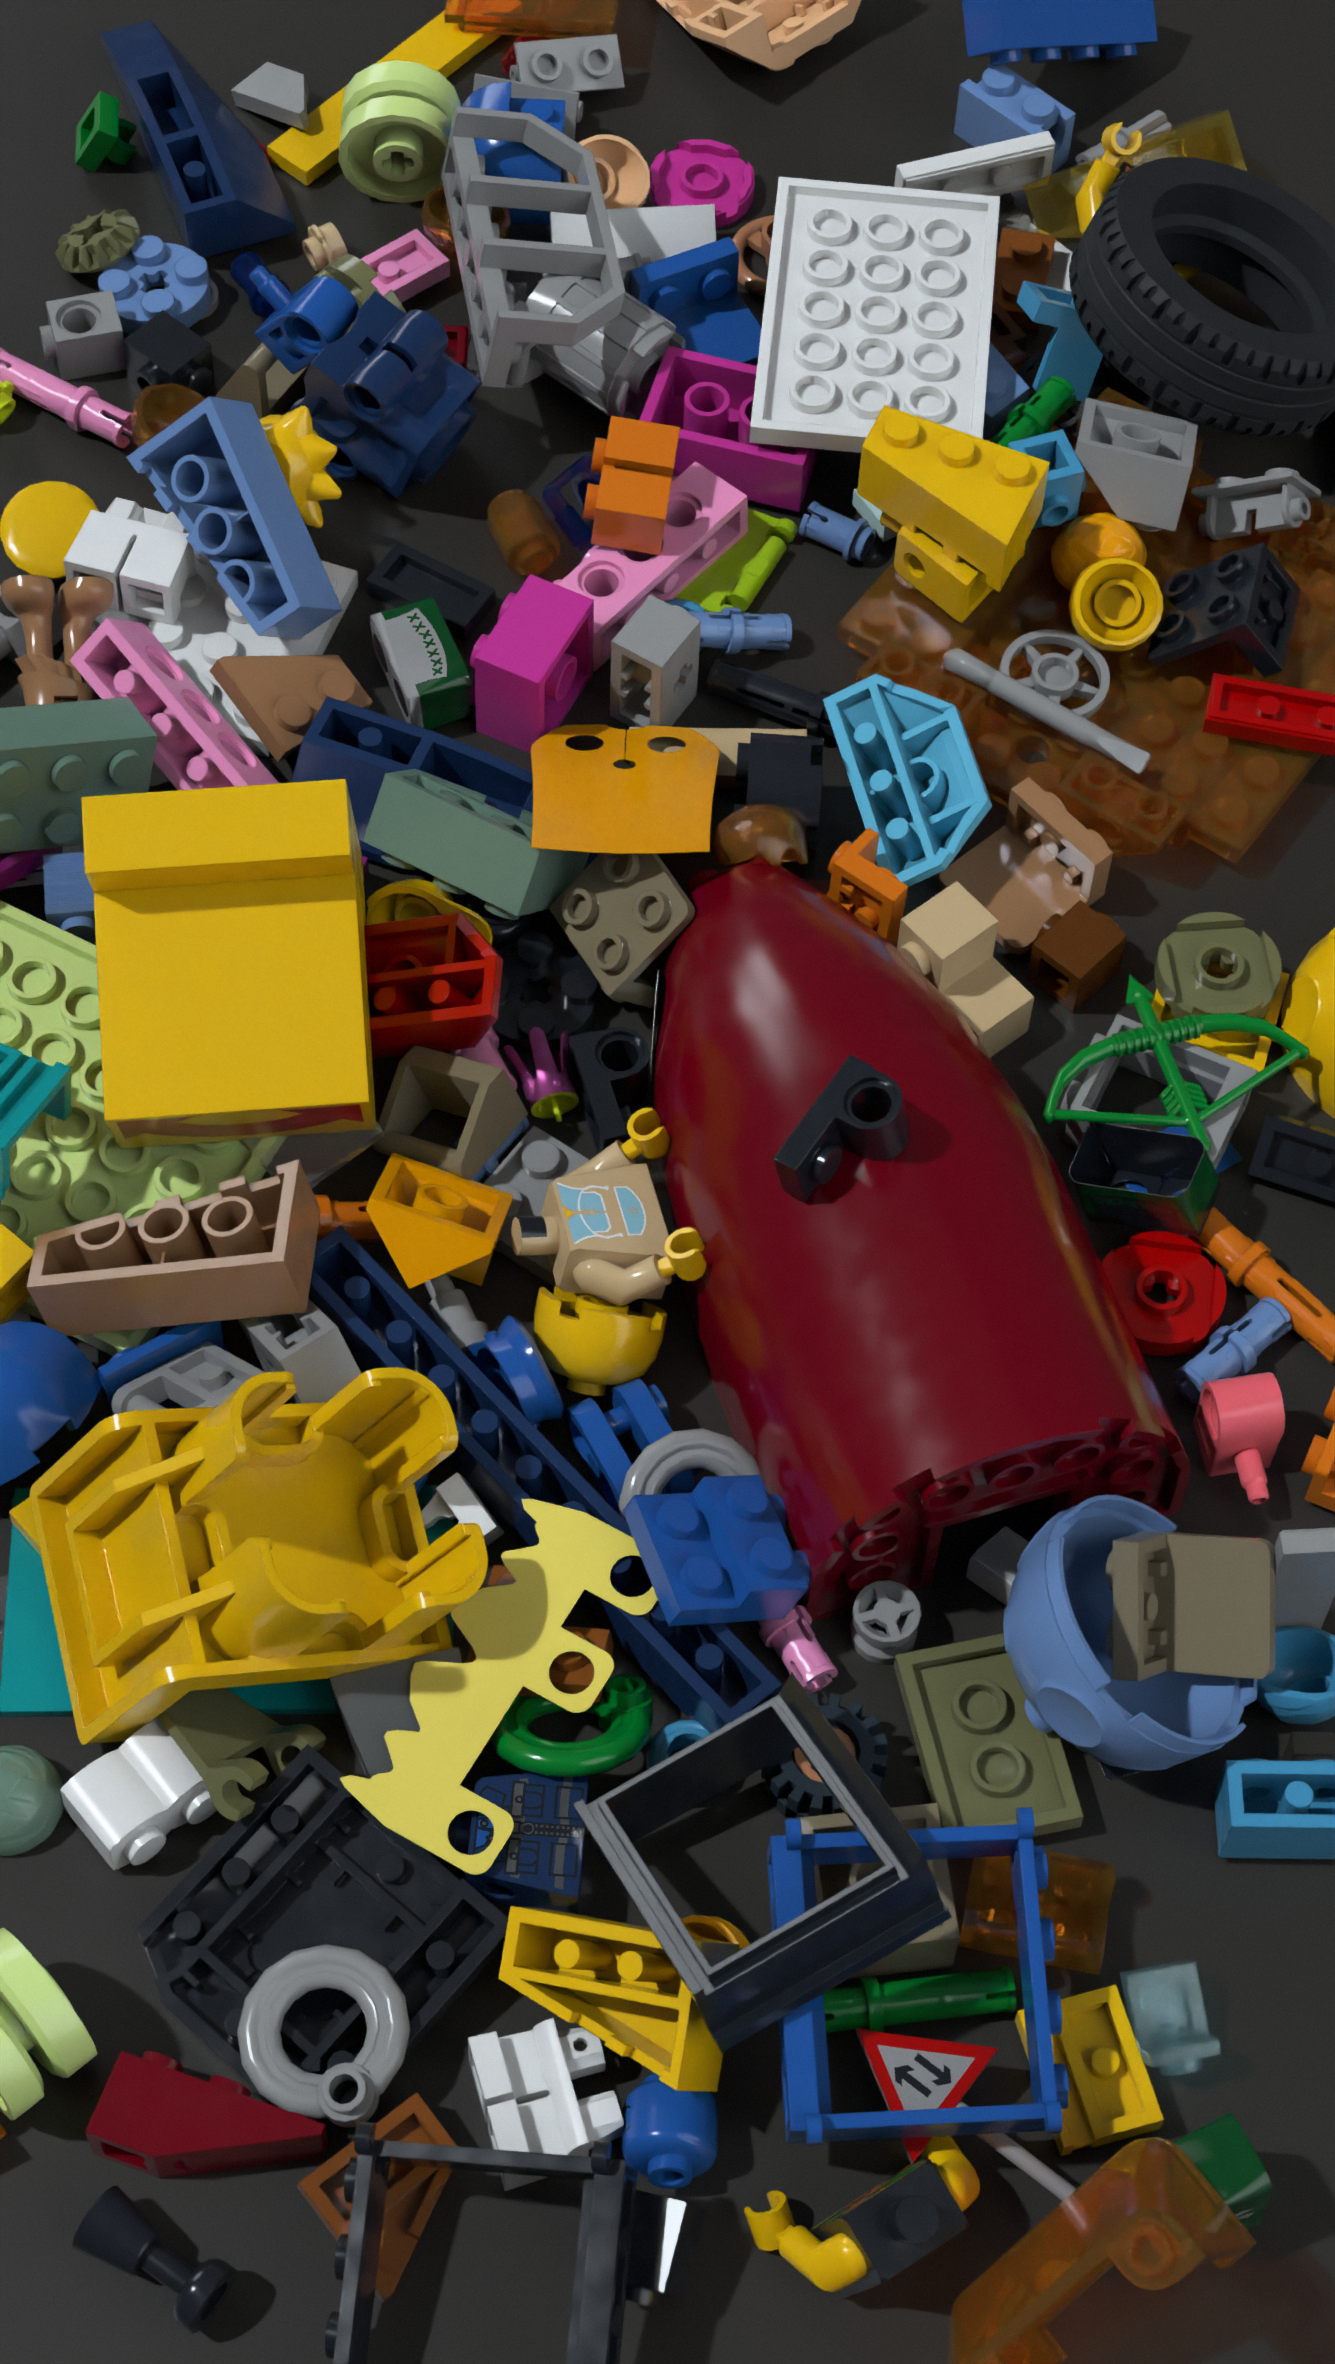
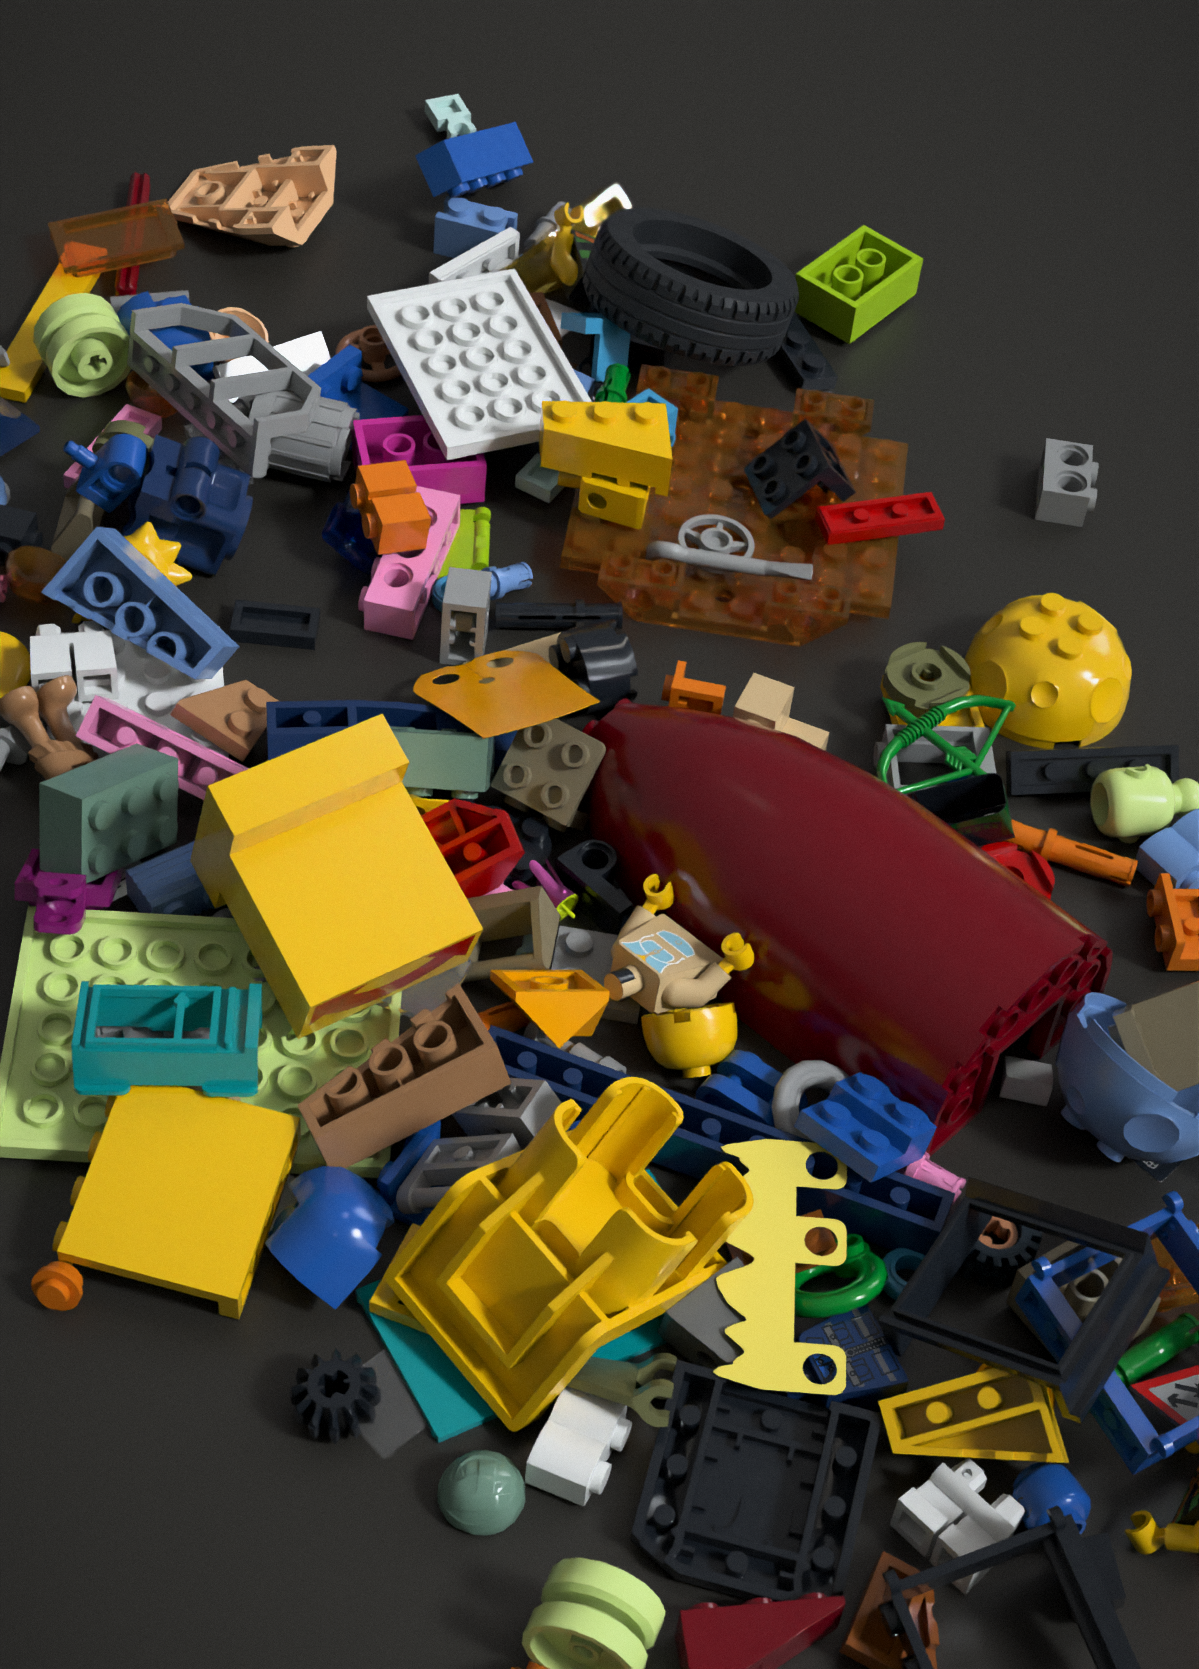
camera: 30 degrees left, 10 degrees down
(242, 267) = (45, 474): clear blue pin -> none
(323, 245) = (66, 430): tan plate -> none
(373, 2067) = (797, 1583): light grey piece -> none
(422, 664) = (304, 665): piece -> none
(458, 1500) = (676, 1175): white tile -> none
(518, 1371) = (662, 1066): blue piece -> none
(522, 532) = (317, 567): clear orange brick -> none
(533, 663) = (383, 640): dark pink brick -> none
(570, 63) = (167, 274): light grey hinge -> none
(654, 1026) = (604, 826): sticker -> none
(701, 175) = (294, 318): dark pink tile -> none
(758, 832) = (611, 686): clear orange hair -> none
(836, 1123) = (824, 820): black plate -> none
(838, 532) = (518, 505): medium blue pin -> none
(888, 1606) = (969, 1129): light grey wheel -> none
(909, 773) = (670, 623): medium azure wedge -> none
(978, 1742) = (1069, 1170): olive plate -> none
(1032, 866) = (773, 648): medium nougat bracket -> none
(1076, 955) = (830, 701): reddish brown brick -> none
(1091, 540) = (698, 464): light orange piece -> none
(1115, 604) = (732, 487): yellow piece -> none
(1137, 461) = (703, 395): light grey slope -> none
(1234, 1348) = (1074, 892): medium blue pin -> none
(1241, 1428) = (1121, 925): coral piece -> none
(1276, 499) = (791, 394): light grey hinge -> none

